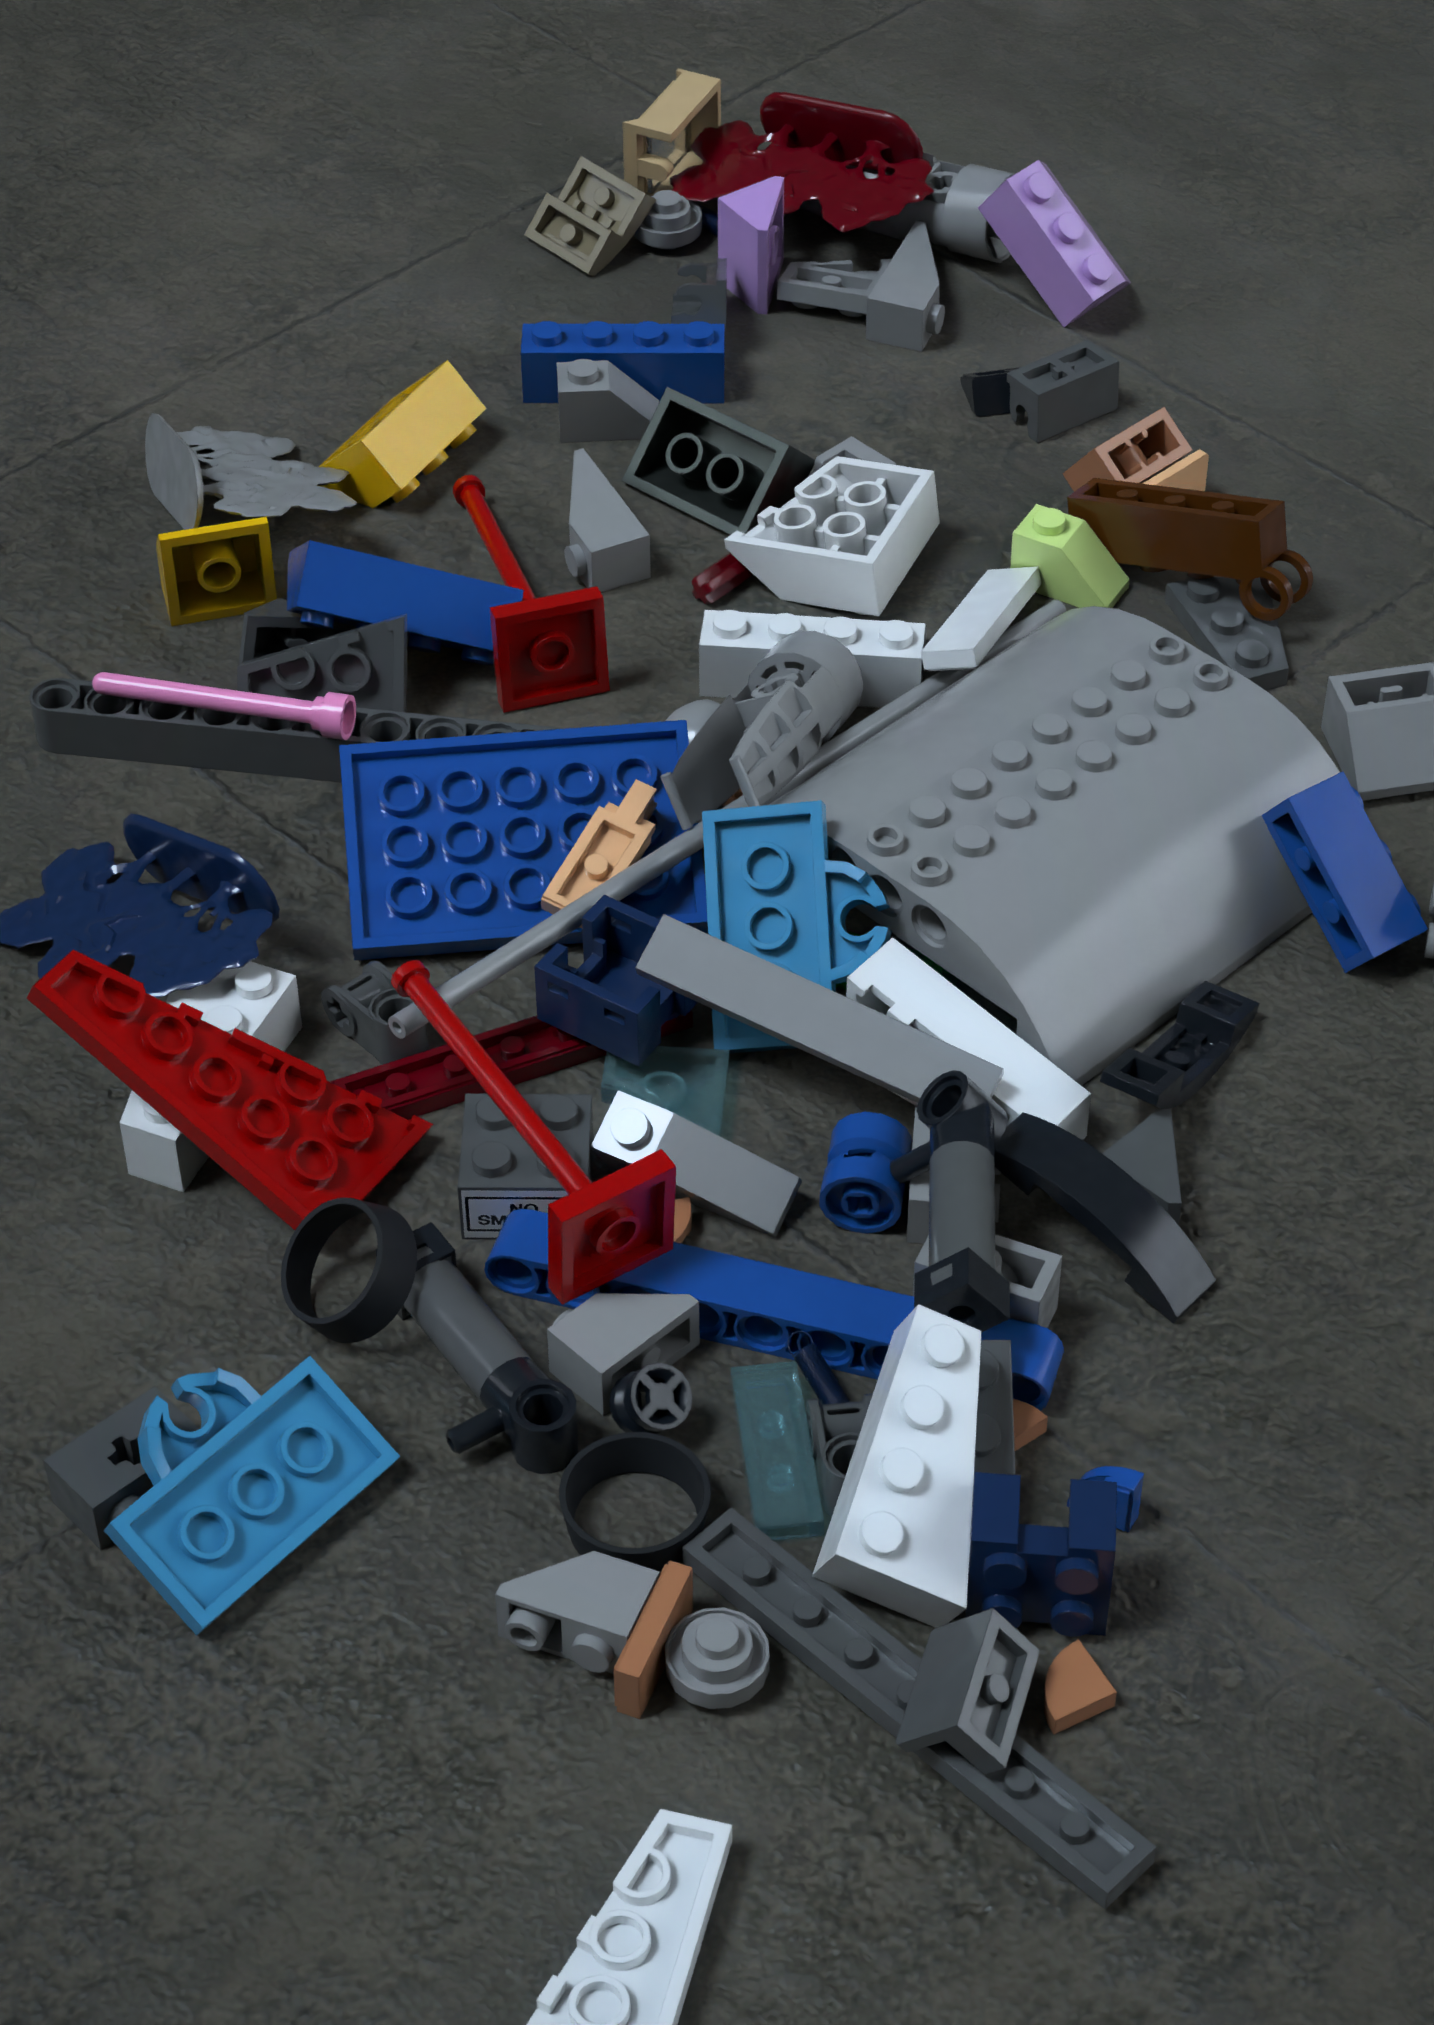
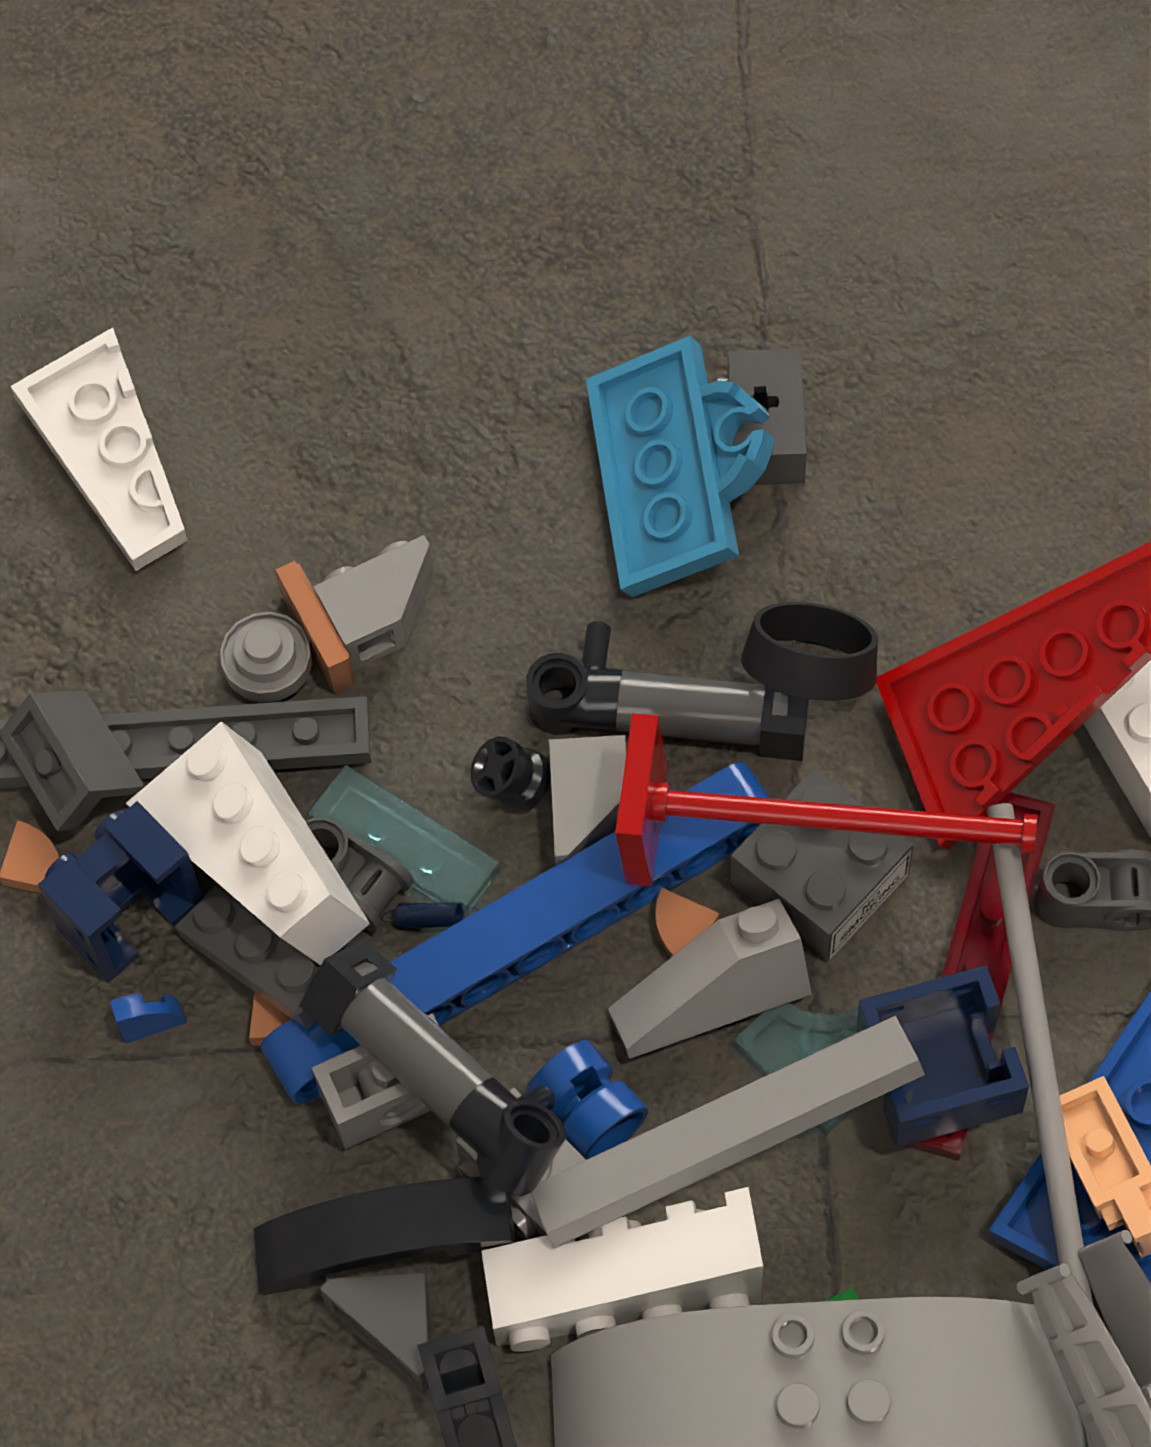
camera: 135 degrees right, 20 degrees up
(628, 1454) = (425, 651): black tyre -> none
(783, 901) = (878, 1213): dark azure plate -> none

